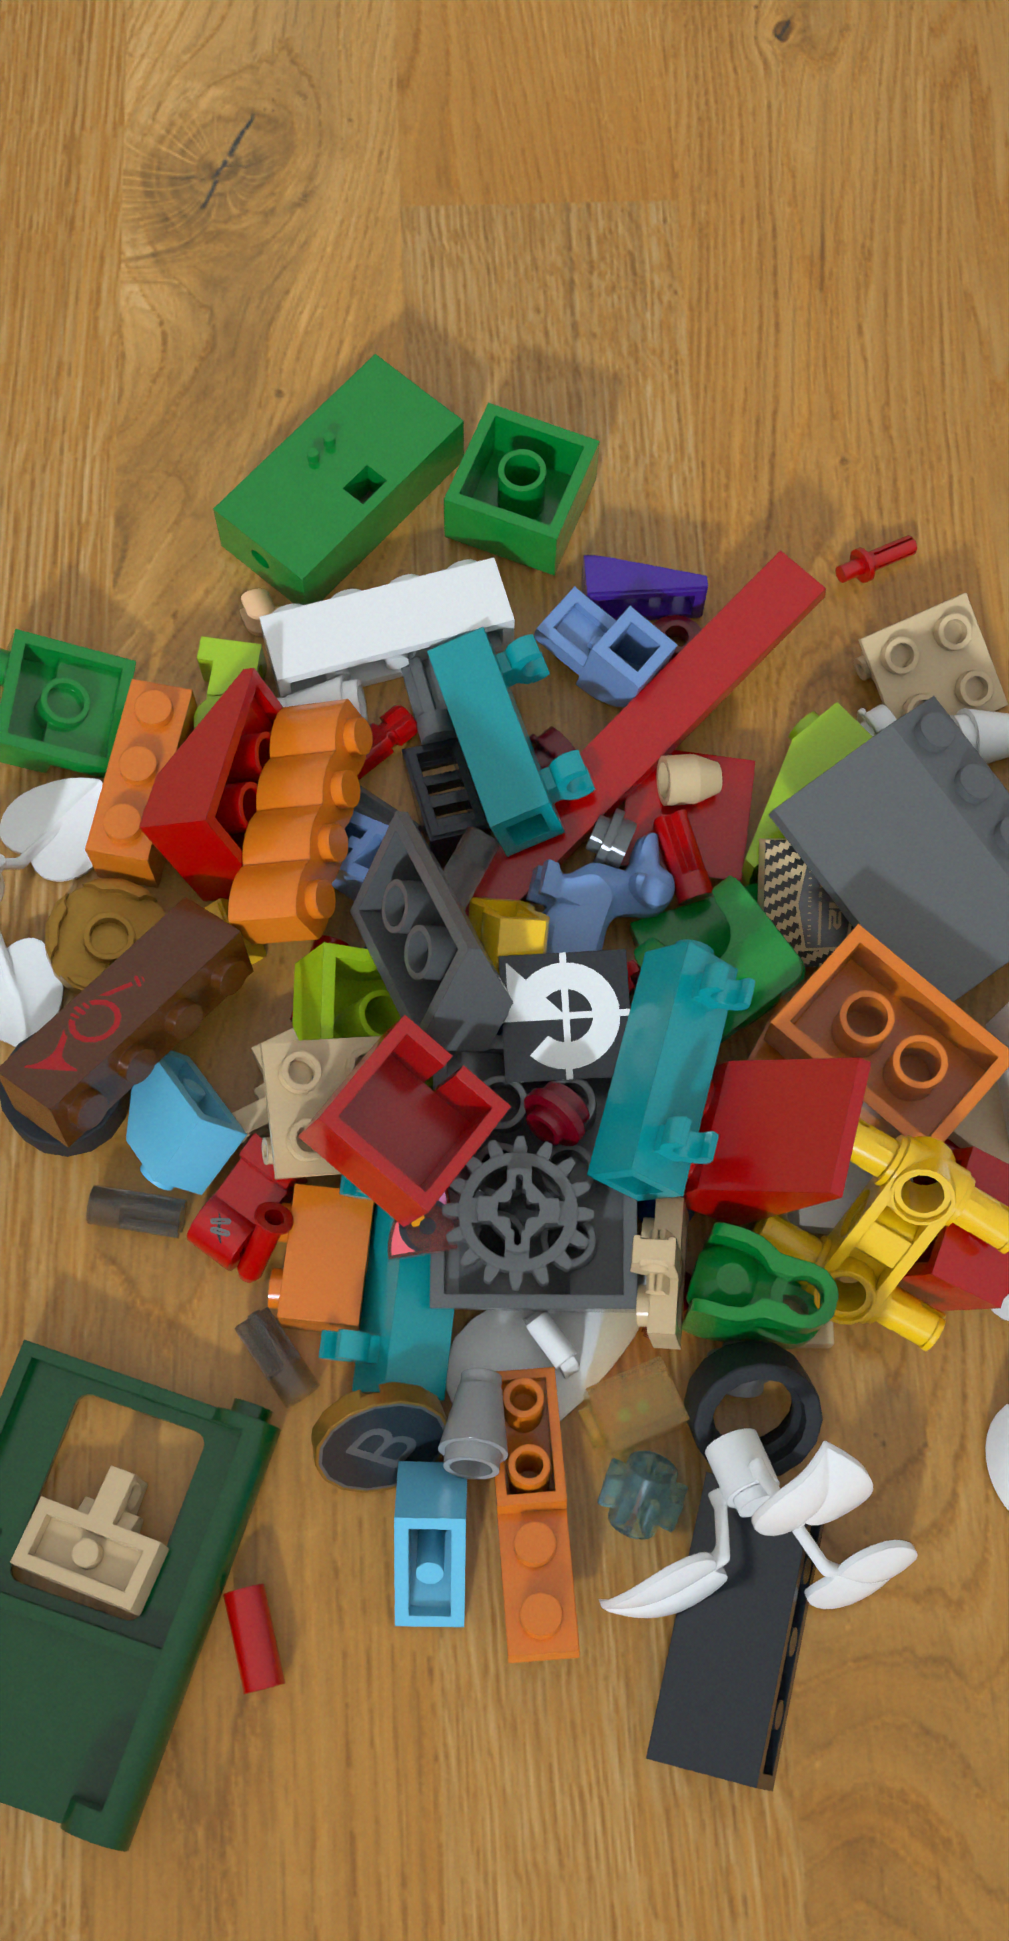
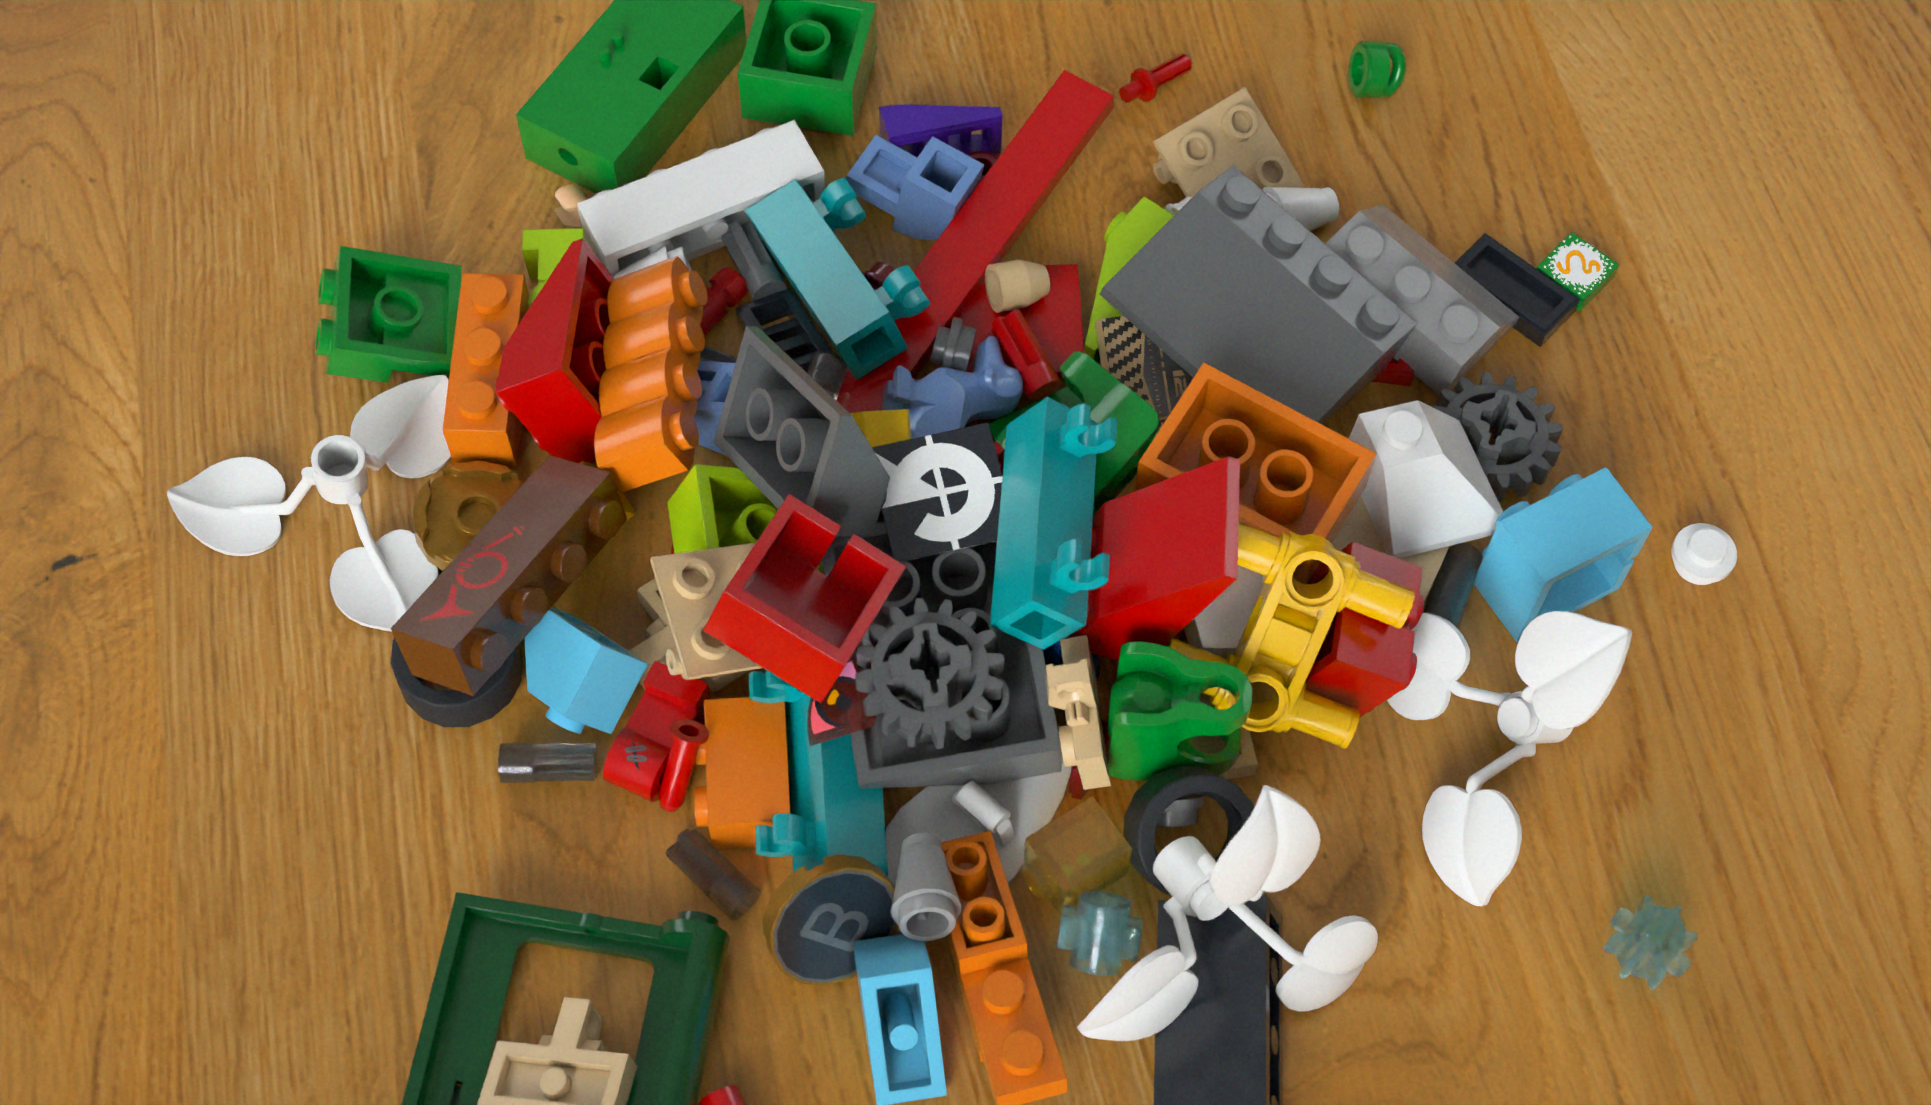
camera: 10 degrees left, 10 degrees down
(556, 1114) = (950, 575): dark red plate -> none

